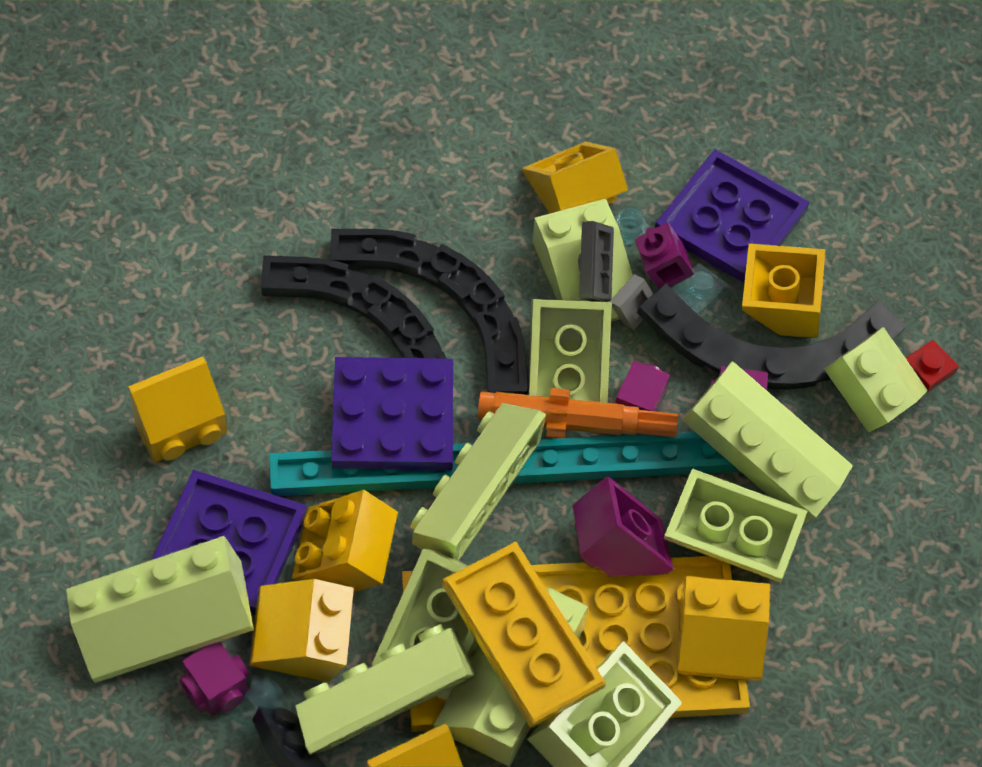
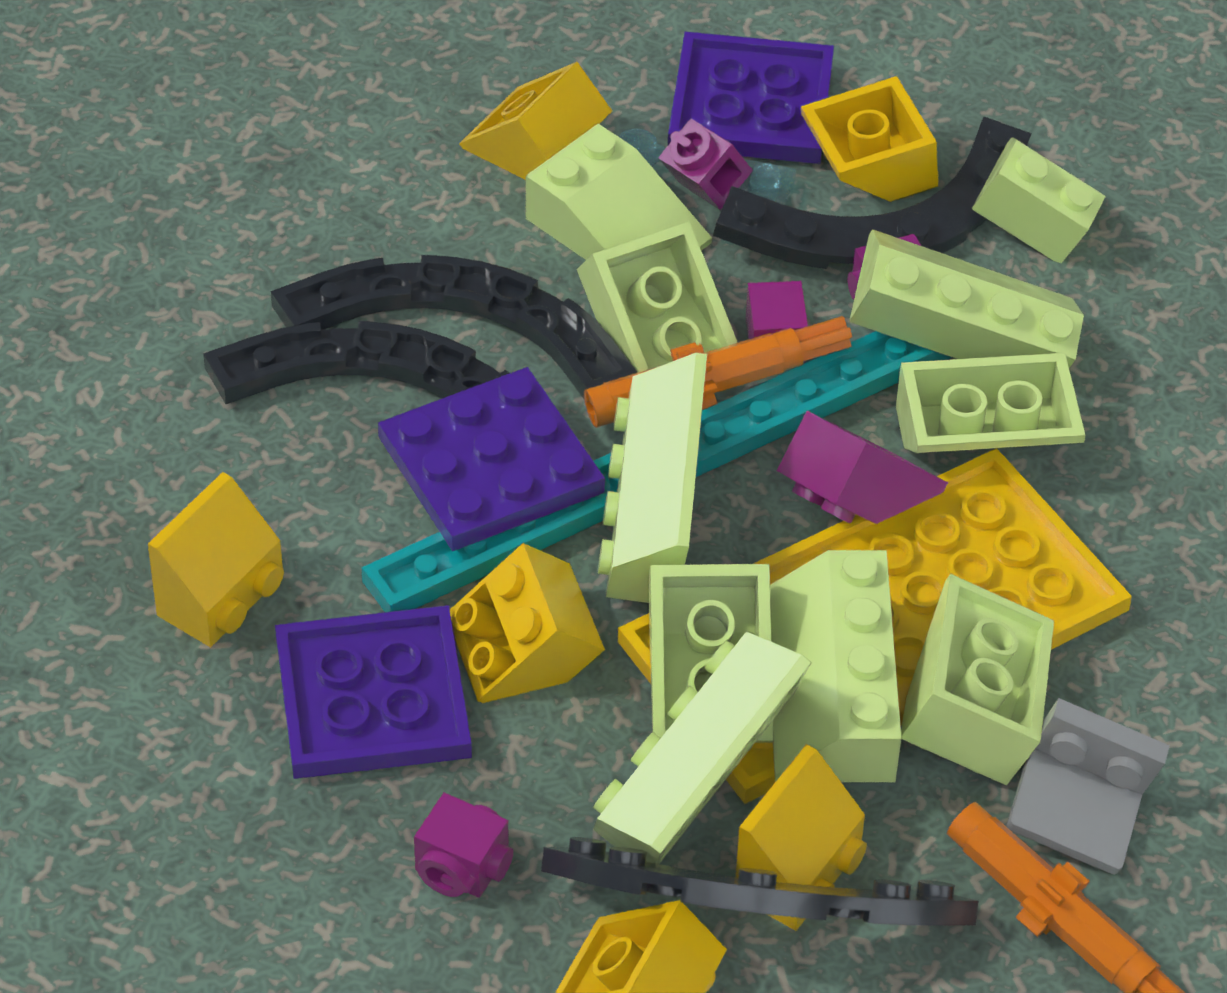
camera: 25 degrees left, 10 degrees down
(160, 609) = (347, 788): yellowish green slope -> none
(265, 693) = (536, 833): clear light blue plate -> none
(302, 628) = (542, 738): yellow slope -> none
(523, 634) = (837, 604): yellow tile -> none
(596, 262) = (632, 188): dark grey plate -> none
(629, 300) = (703, 213): light grey plate -> none
(723, 628) = (1050, 517): yellow slope -> none
(932, 364) = (1088, 161): red plate -> none

